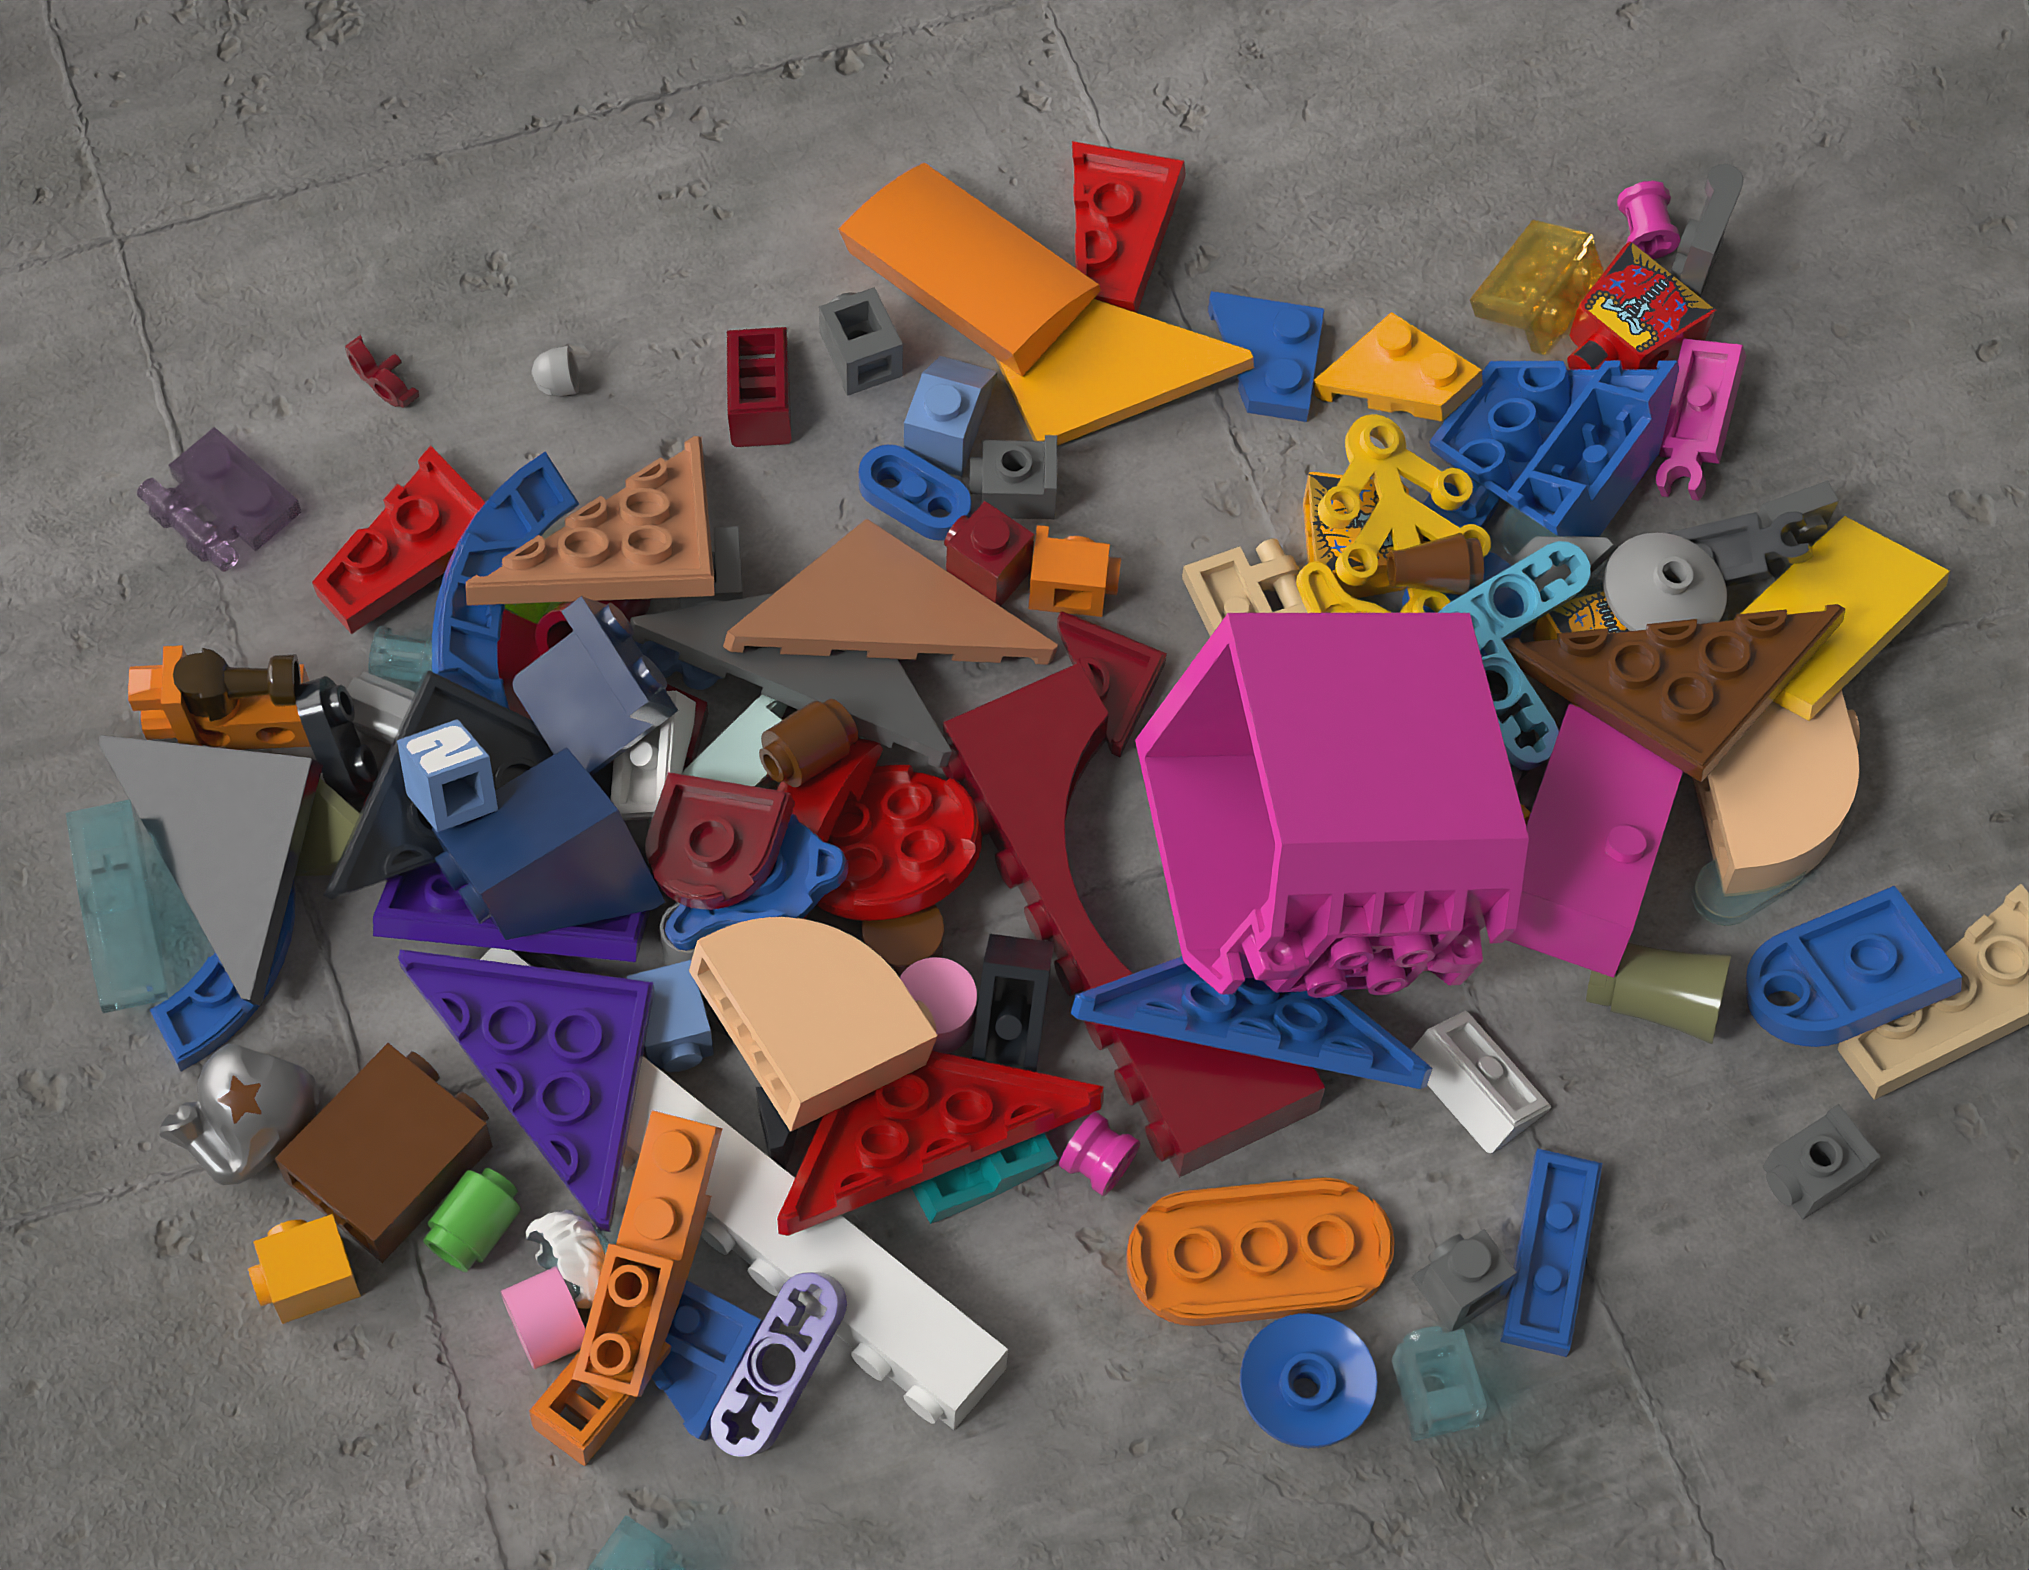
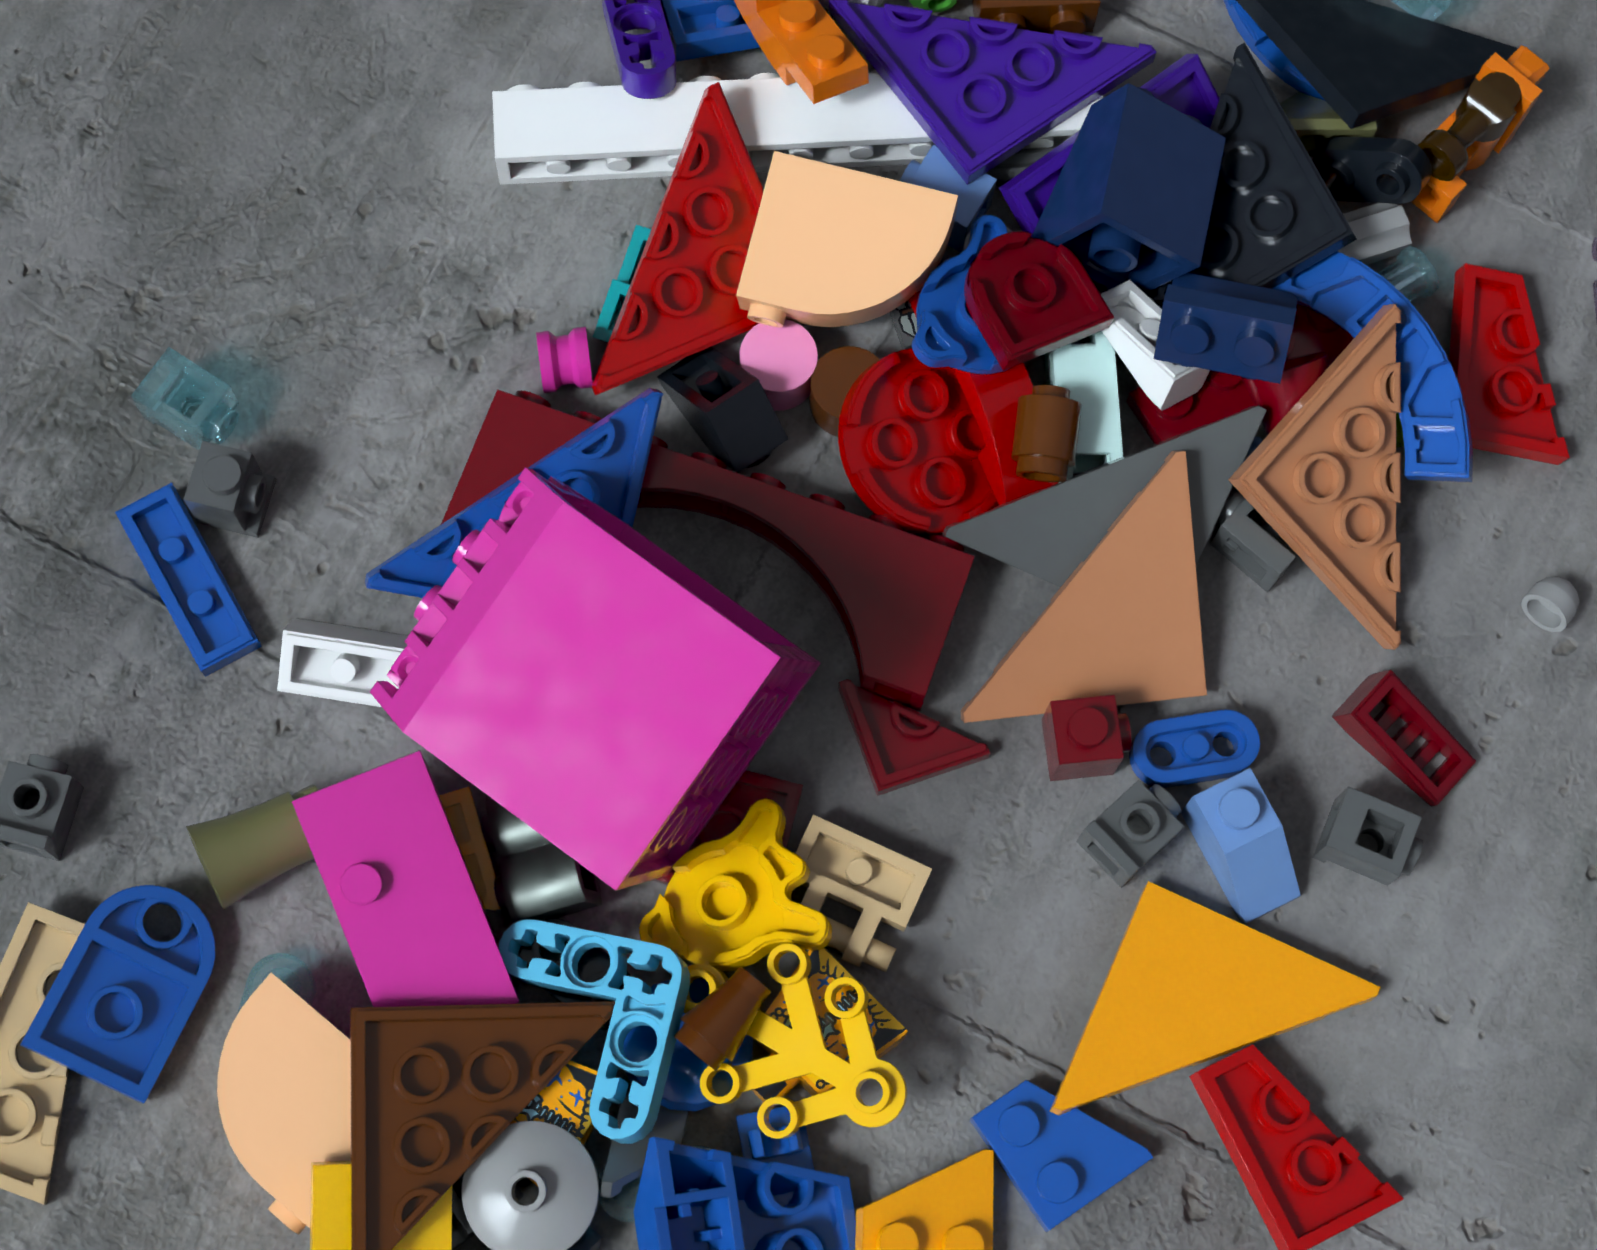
camera: 135 degrees right, 10 degrees up
(447, 775) = (1250, 158): medium blue brick -> none
(968, 266) = (1357, 981): orange slope -> none
(1071, 574) = (1010, 785): orange brick -> none
(1259, 1251) = (396, 402): orange tile -> none
(1316, 1350) = (272, 303): blue dish -> none

